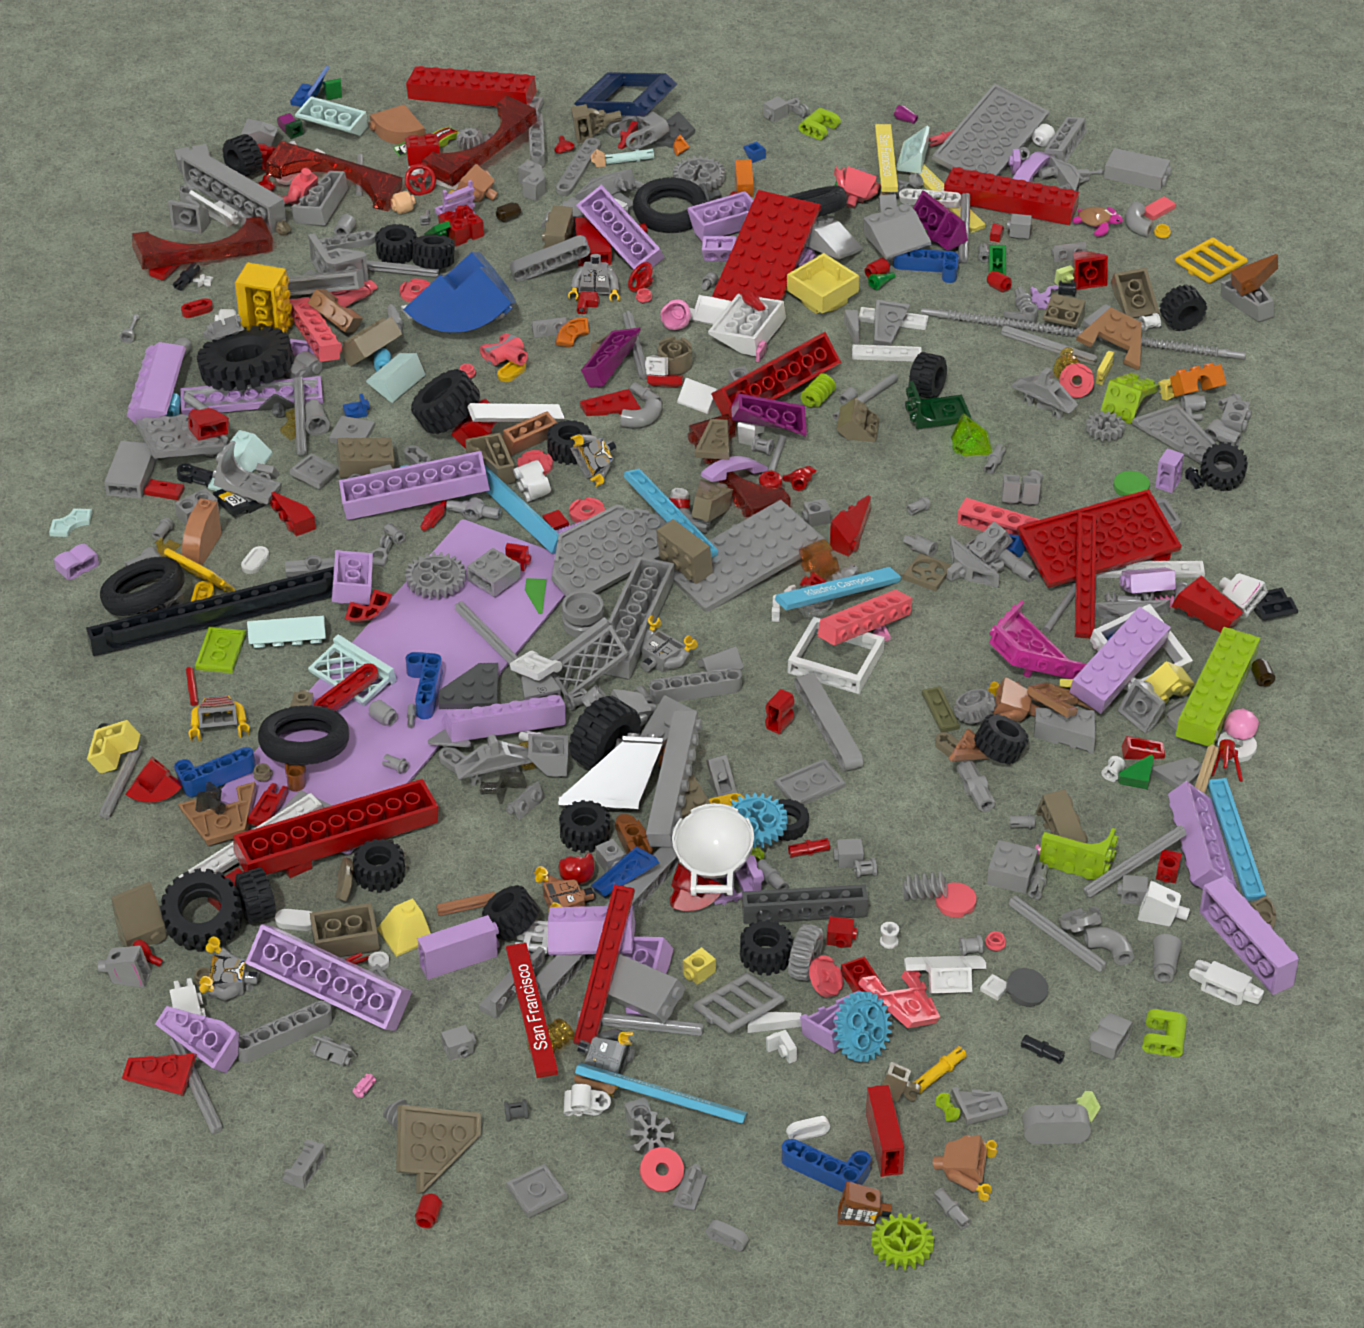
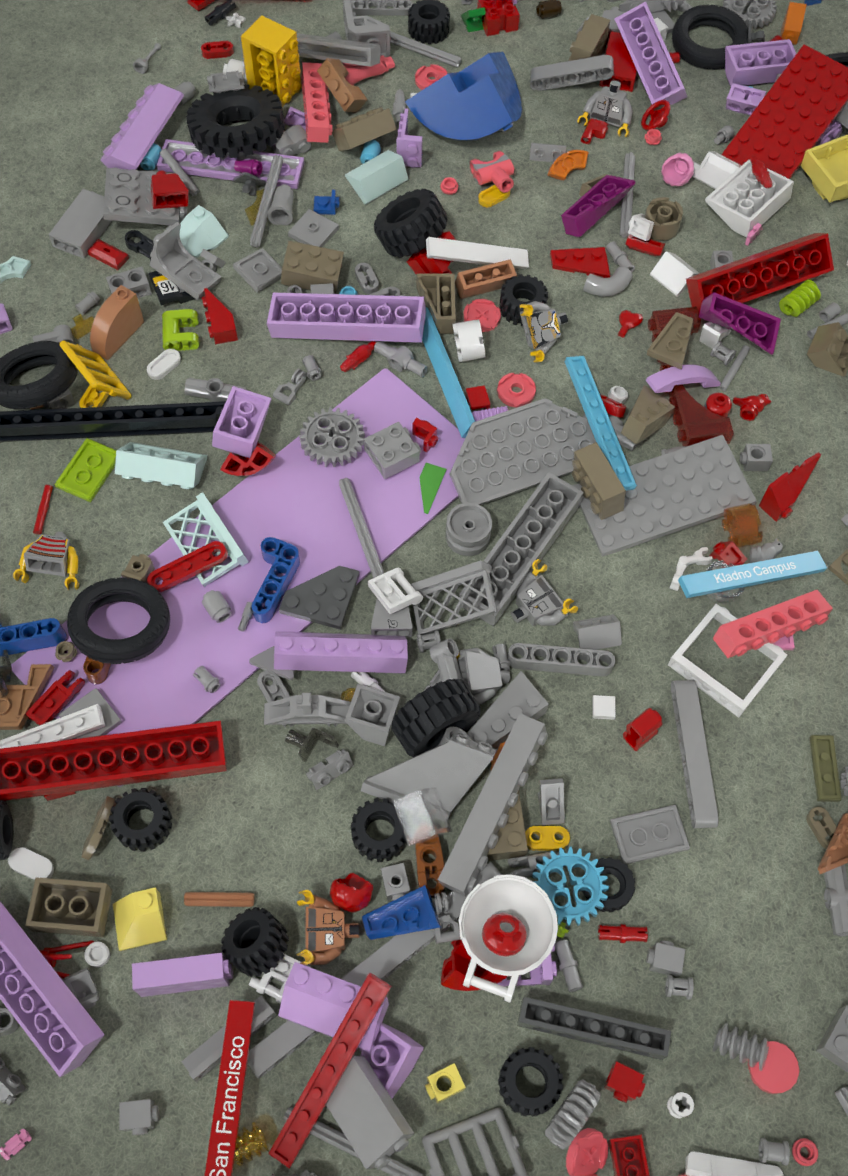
camera: 15 degrees right, 20 degrees up
(252, 530) = (171, 324): none -> lime connector
(267, 392) = (251, 166): none -> magenta cone
(418, 343) = (408, 146): none -> lavender plate
(433, 251) = (460, 38): black tyre -> none
(616, 801) = (422, 815): none -> clear slope
(670, 439) = (628, 321): none -> red rock
(671, 872) = (439, 903): none -> light grey piece
(712, 852) = (502, 942): none -> red piece
(743, 711) = (603, 707): none -> white tile

